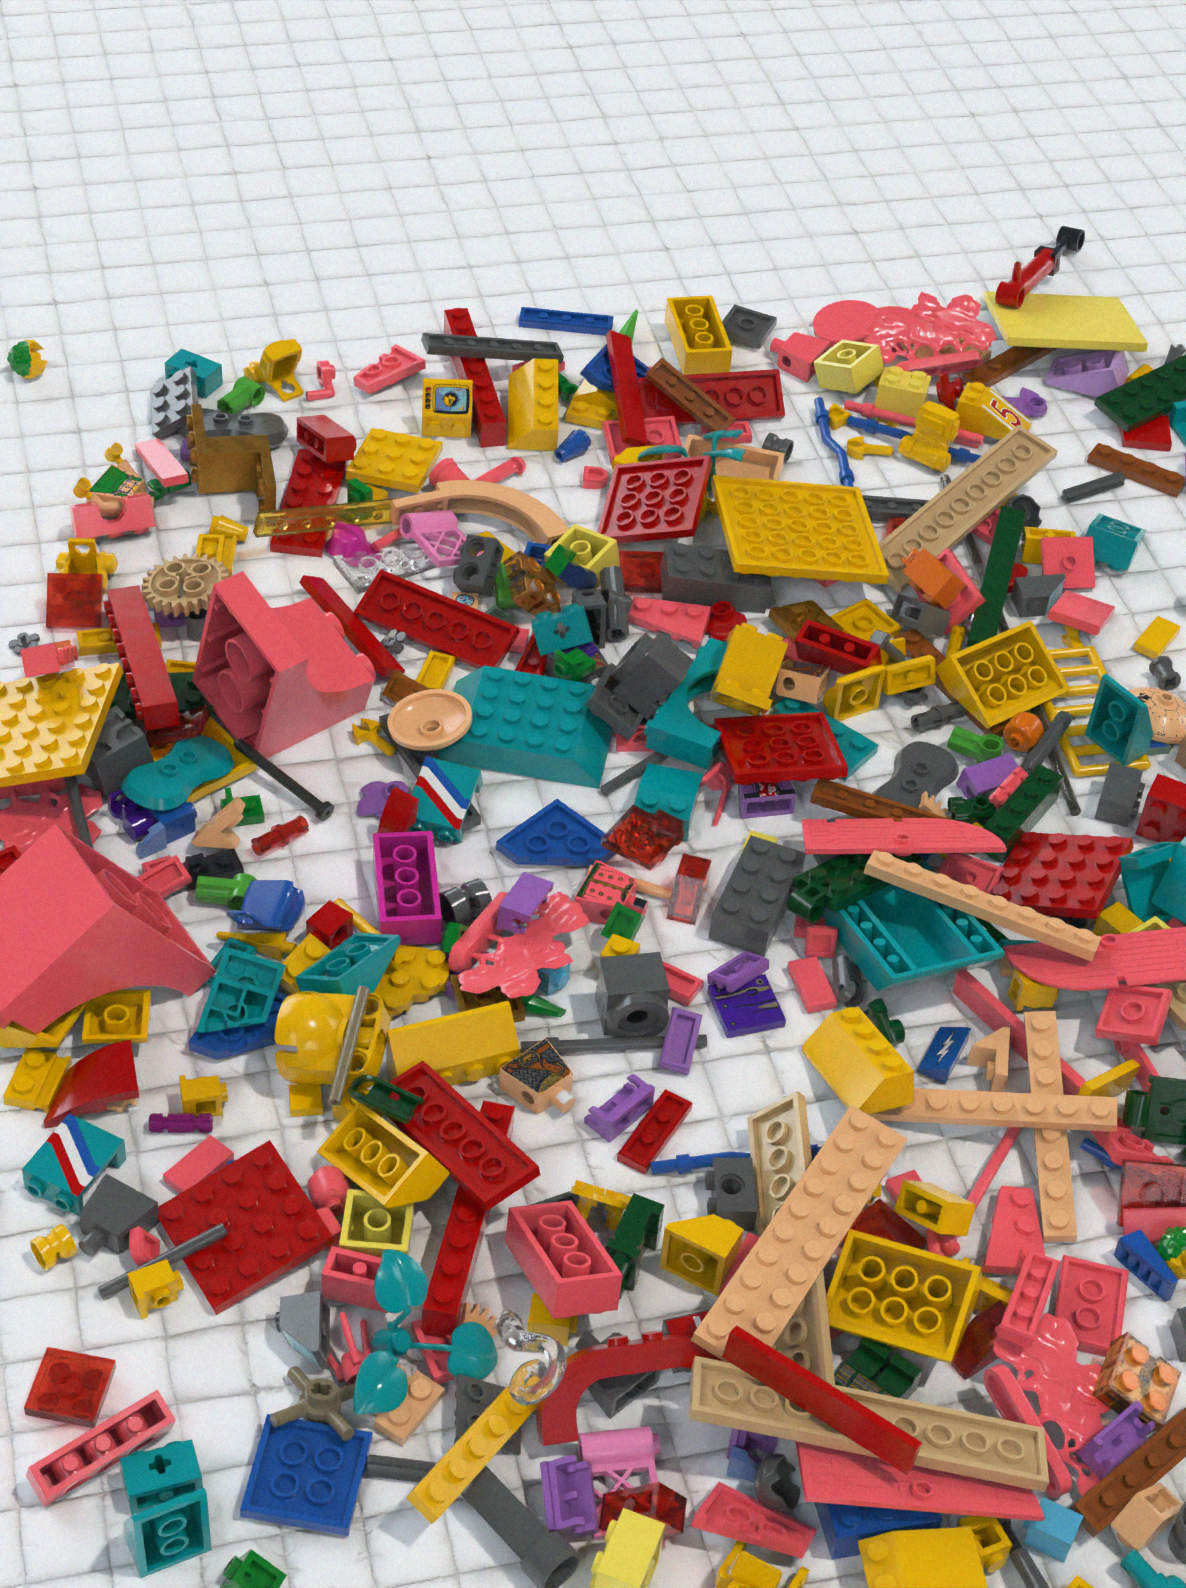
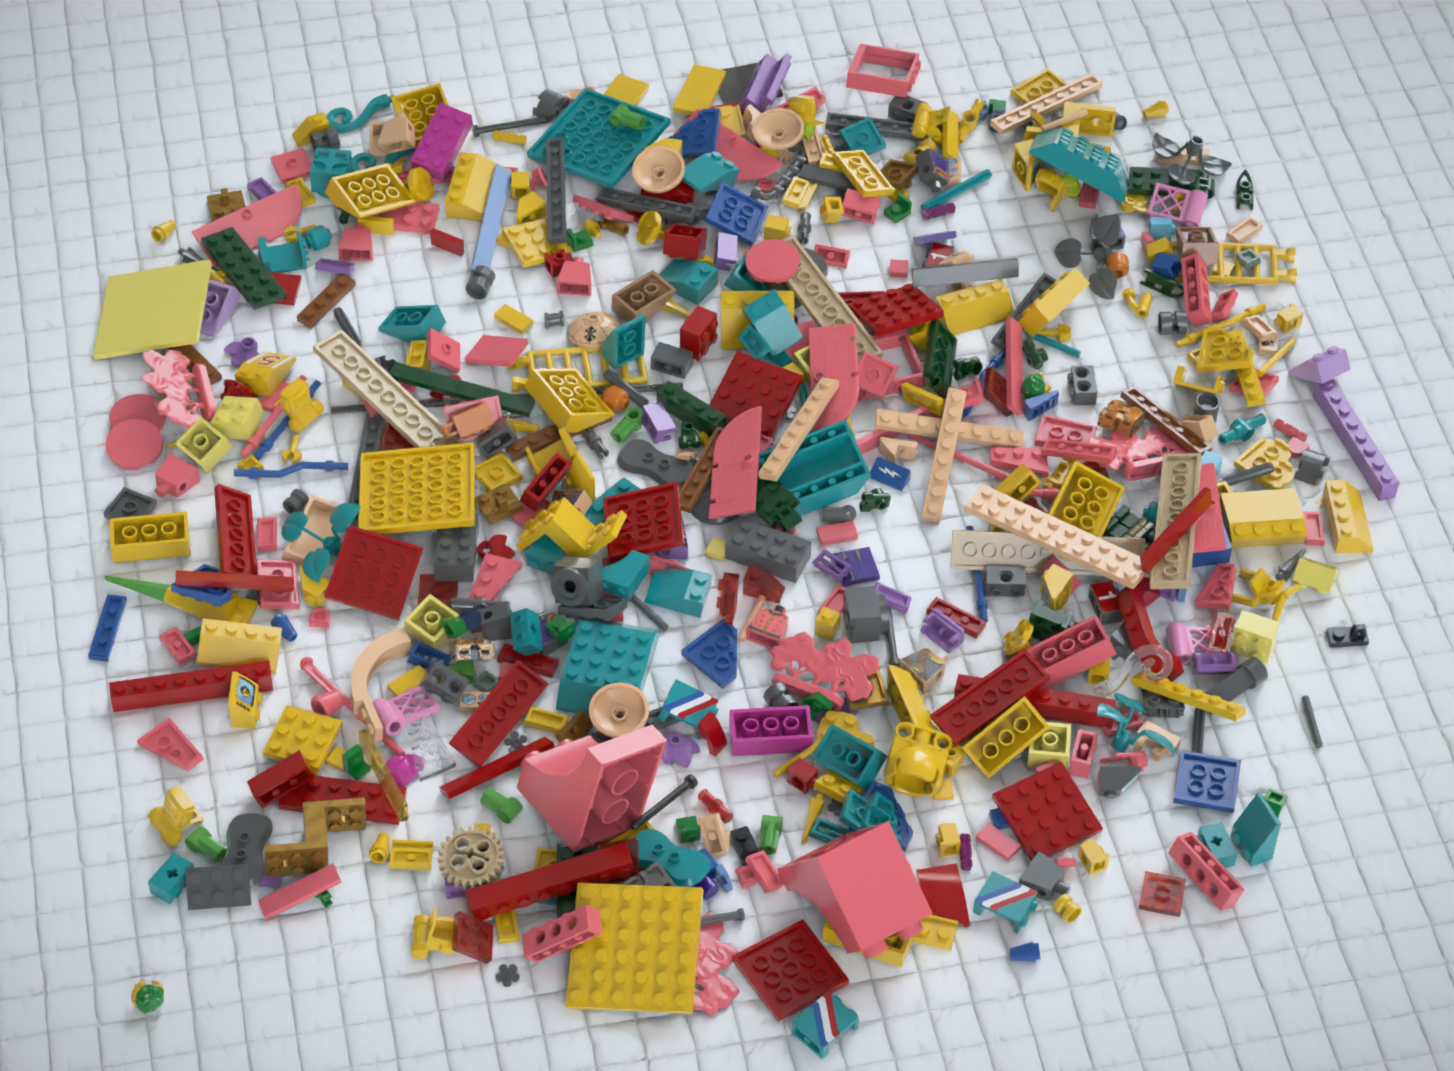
camera: 85 degrees left, 5 degrees up
(112, 485) = (331, 920): torso -> none
(135, 516) = (375, 931): coral arch -> none
(172, 1255) = (1075, 850): dark grey bar -> none
(270, 906) = (797, 801): blue piece -> none
(317, 1403) = (1165, 773): dark tan bar -> none
(325, 374) = (196, 788): coral plate -> none
(329, 1188) = (1018, 769): coral head -> none
(348, 1046) = (934, 741): dark tan piece -> none
(379, 1099) = (965, 734): dark green piece -> none
(490, 347) = (175, 664): dark grey tile -> none
(522, 902) = (793, 662): medium lavender hinge -> none
(623, 922) = (803, 617): green bracket -> none
(689, 396) = (248, 542): dark orange plate -> none
(774, 1484) = (1199, 577): dark grey hair -> none
(820, 941) = (807, 523): coral tile -> none
(859, 1063) = (913, 509): yellow slope -> none
(882, 639) = (546, 453): dark grey piece -> none
(1007, 787) = (676, 409): coral axle -> none
(1036, 594) = (473, 370): dark grey slope -> none
(1045, 262) = (68, 310): red piece -> none
(1116, 1441) = (1157, 433): medium lavender hinge -> none

